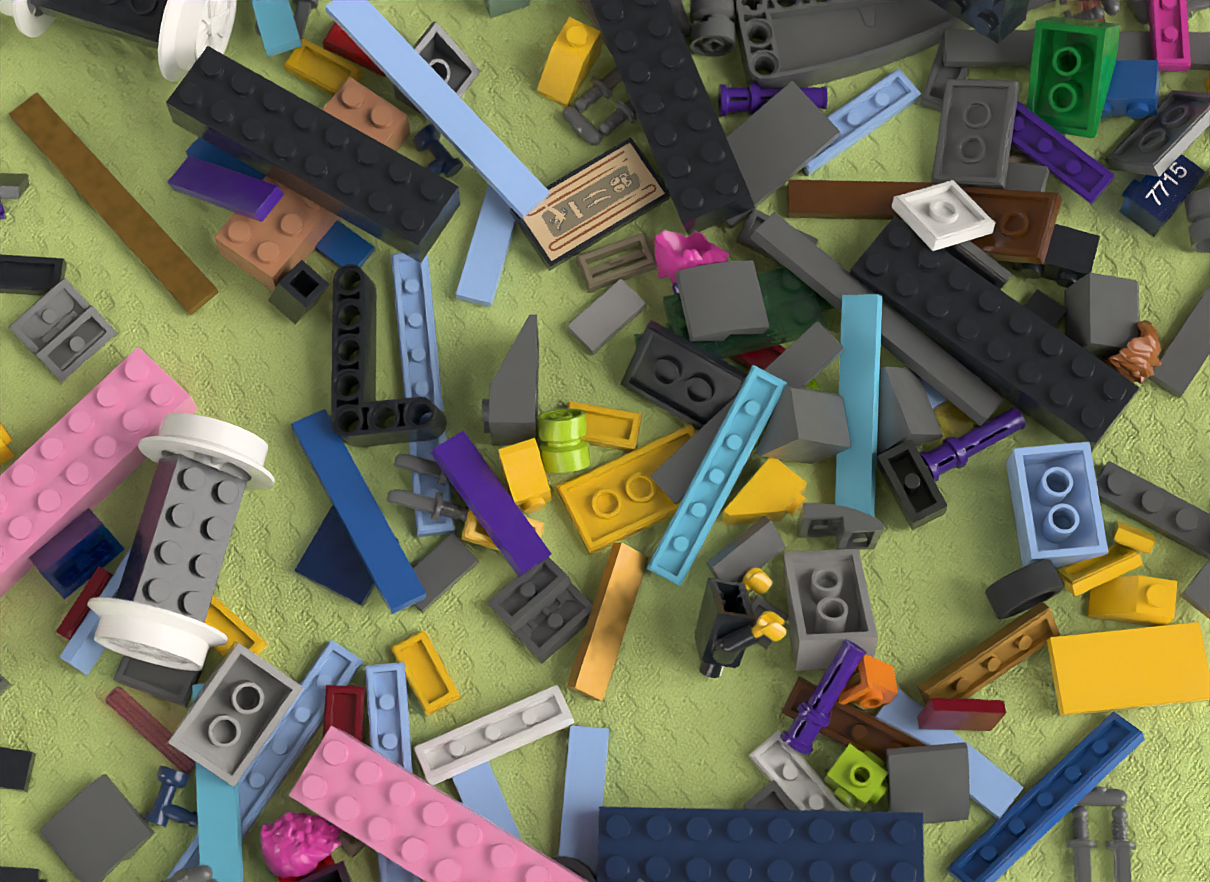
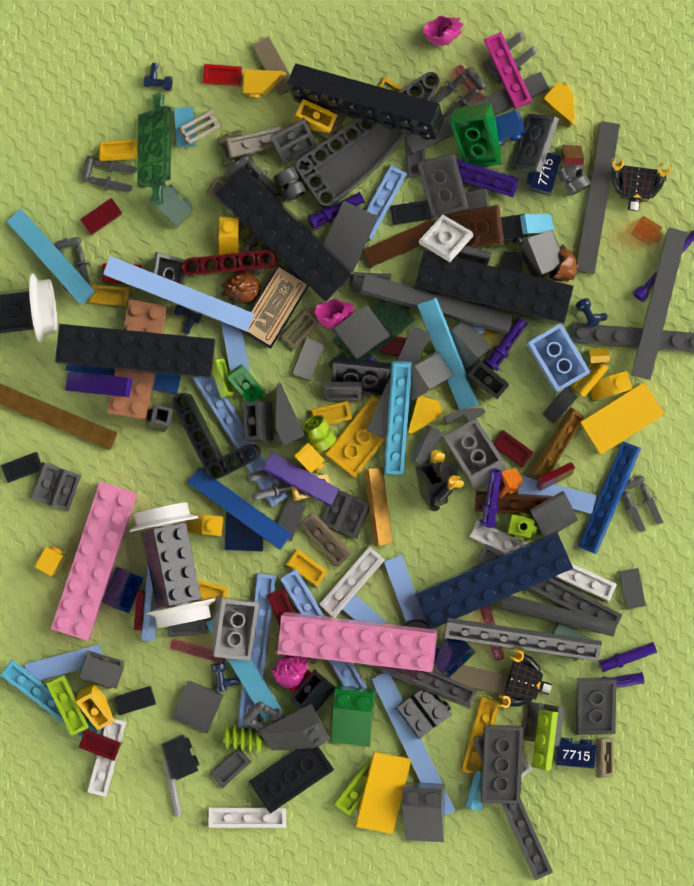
camera: 25 degrees left, 15 degrees up
(285, 512) = (206, 525): none -> yellow slope
(442, 279) = (224, 386): none -> lime tile
(465, 374) = (258, 421): none -> dark grey brick
(476, 304) = (245, 383): none -> green plate
(484, 635) = (325, 539): none -> dark tan tile
(549, 150) = (241, 288): none -> dark orange hair
(559, 110) = (220, 263): none -> dark red beam
(640, 392) = (342, 391): none -> dark grey tile
(897, 158) = (410, 212): none -> black tile
(902, 633) = (512, 448): none -> dark red tile
(1111, 259) = (536, 223): none -> medium azure tile
(1141, 440) = (593, 319): none -> dark blue piece

